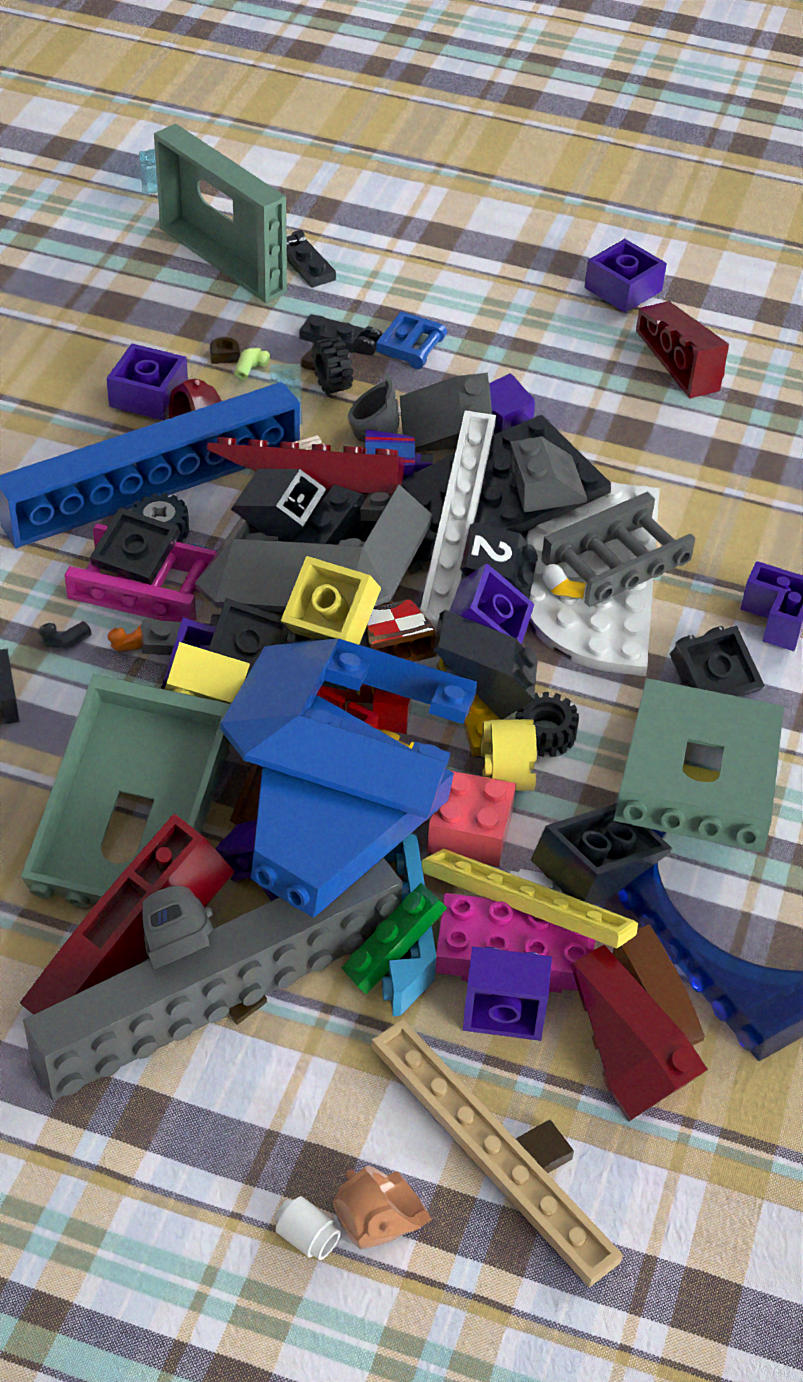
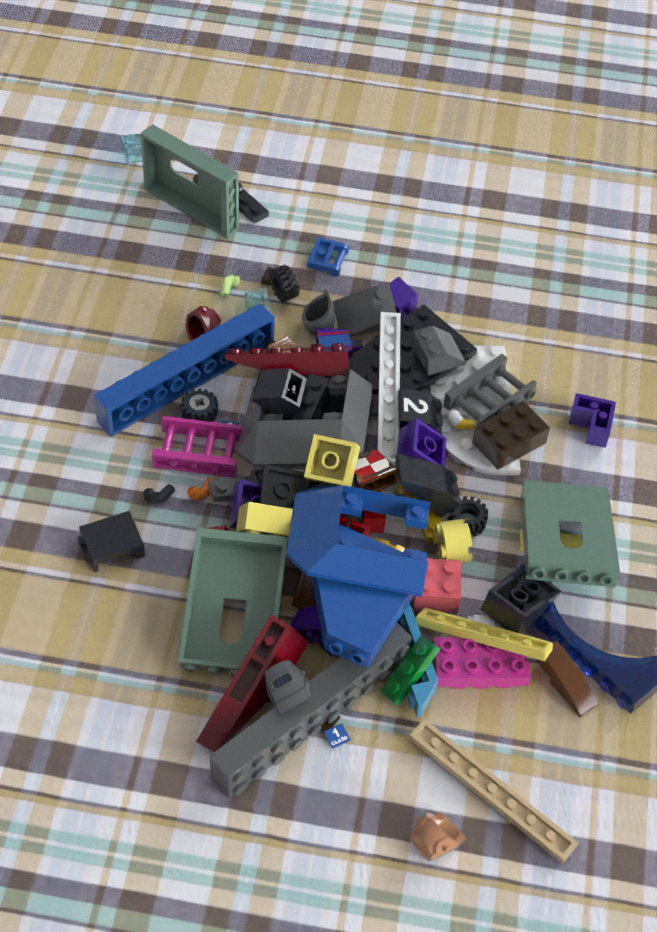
camera: 10 degrees left, 5 degrees up
(135, 546) = (192, 430): black plate -> none
(145, 380) = (168, 308): dark purple brick -> none
(224, 350) = (209, 278): dark brown tile -> none
(254, 1027) = (337, 736): none -> blue sticker
(307, 1228) = (397, 854): white brick -> none
(356, 338) = (278, 257): black hinge -> none
(507, 993) = (483, 695): dark purple brick -> none
(547, 1146) = (522, 783): dark brown tile -> none
(625, 275) = (455, 195): dark purple brick -> none
(637, 1041) = (565, 716): dark red wedge -> none
(638, 610) = (510, 435): none -> dark brown brick
(684, 347) = (501, 243): dark red wedge -> none
(717, 662) = (562, 463): black plate -> none

